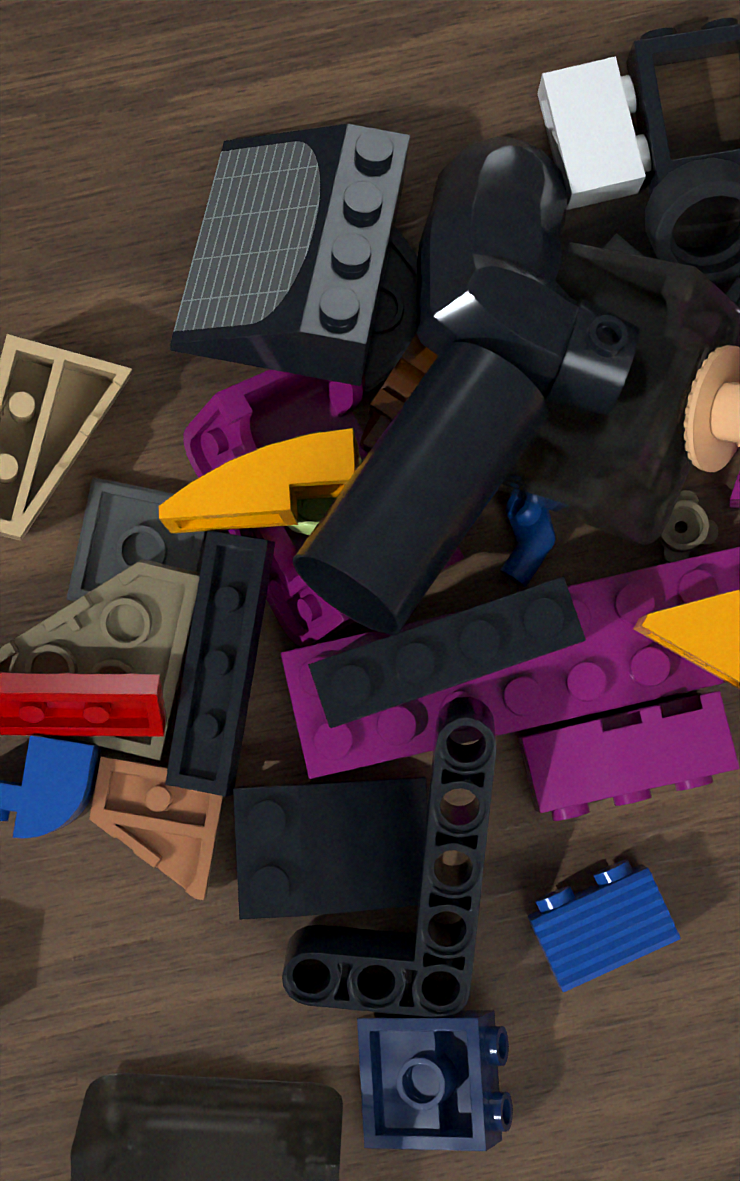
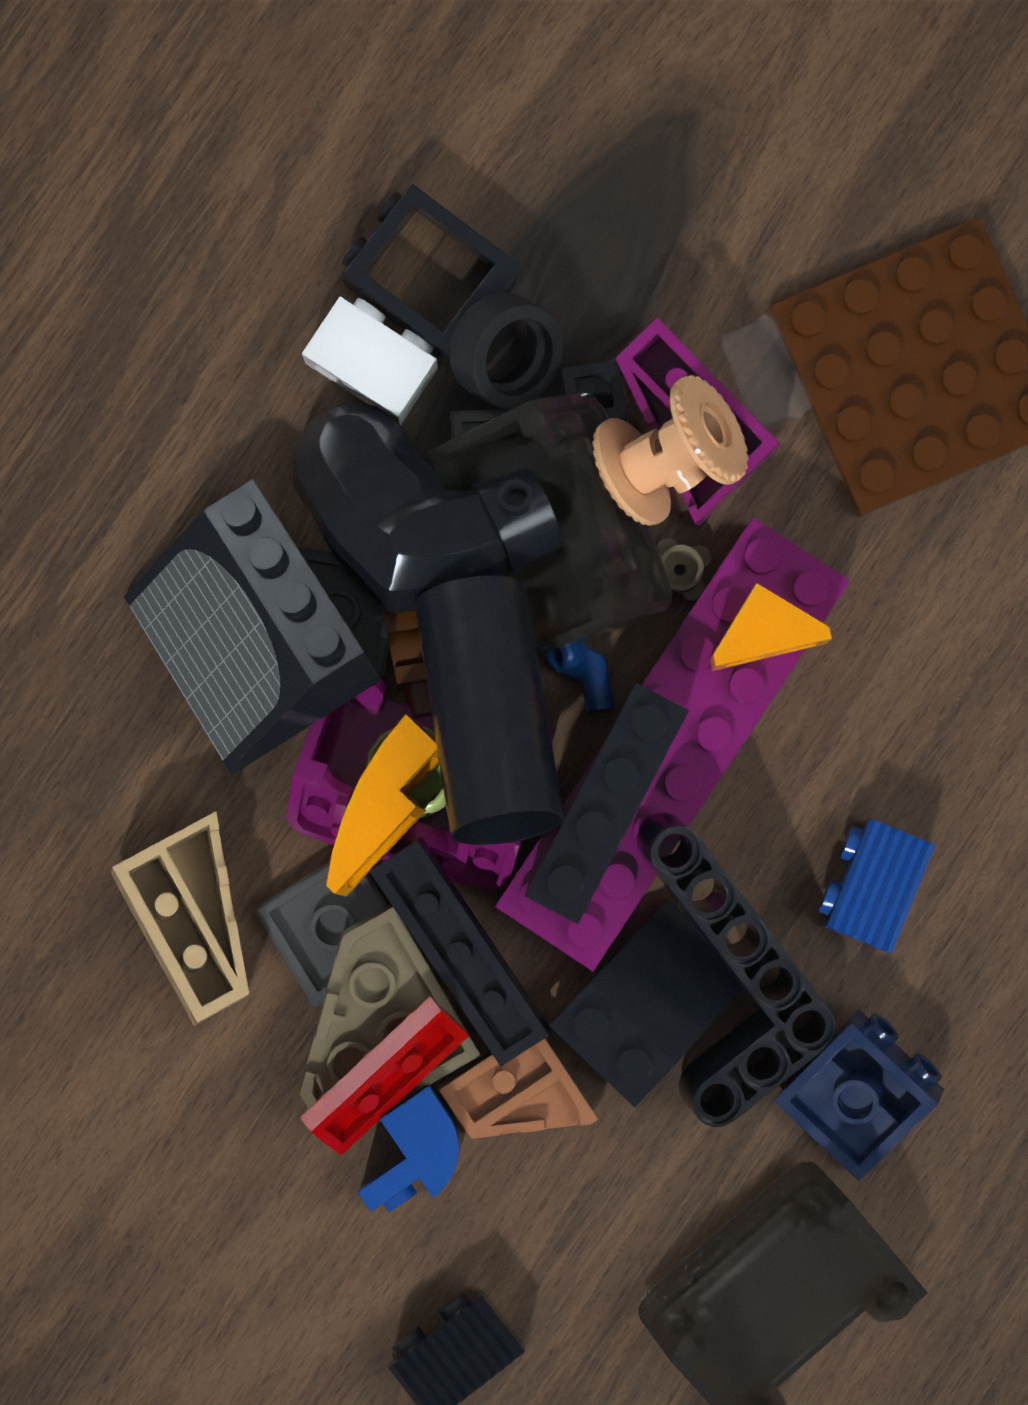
camera: 45 degrees left, 0 degrees up
(628, 754) = (786, 757): magenta wedge -> none

